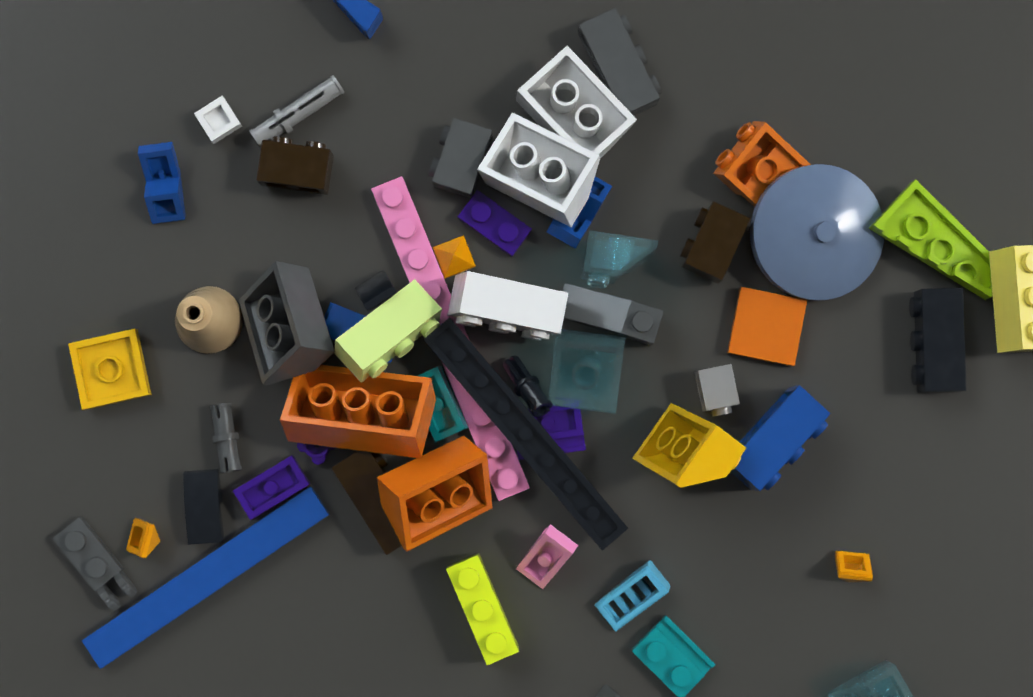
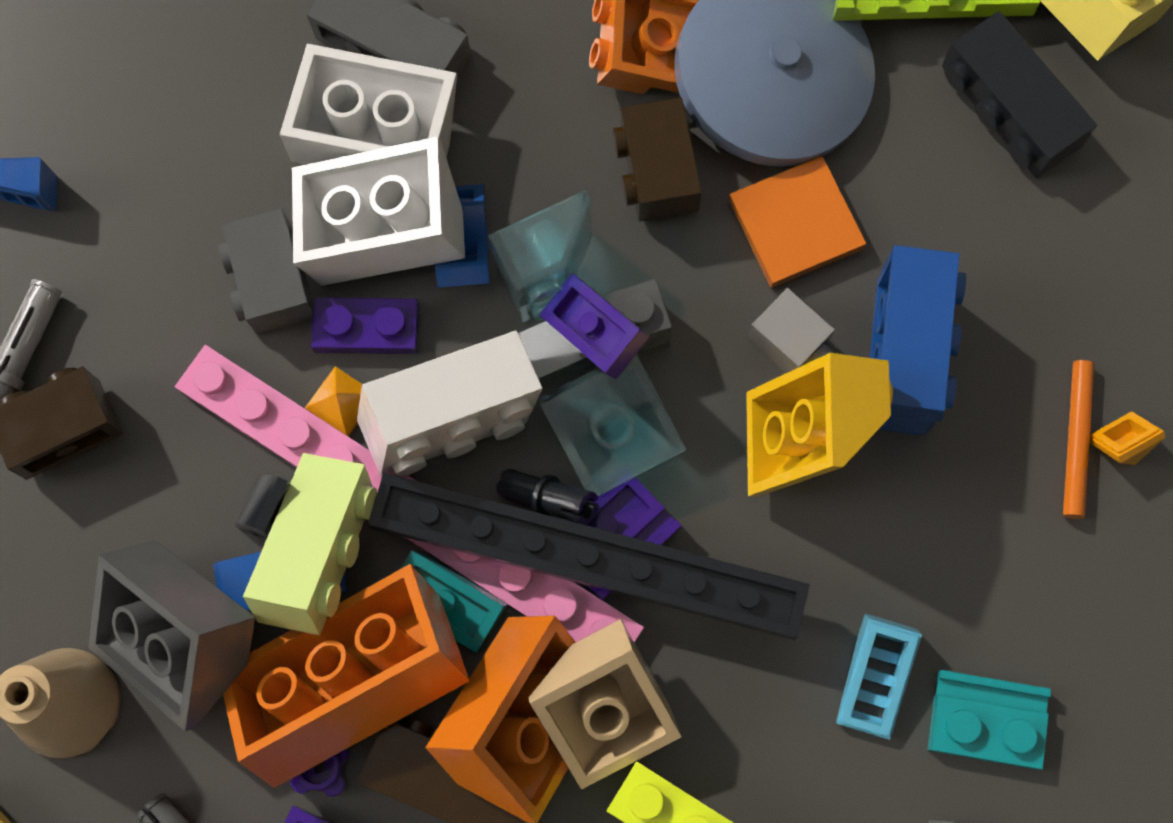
camera: 30 degrees left, 10 degrees down
(481, 516) = (603, 706): none -> tan slope
(546, 556) = (729, 700): bright pink slope -> none
(611, 316) = (594, 326): none -> dark purple plate
(829, 548) = (1078, 439): none -> orange bar

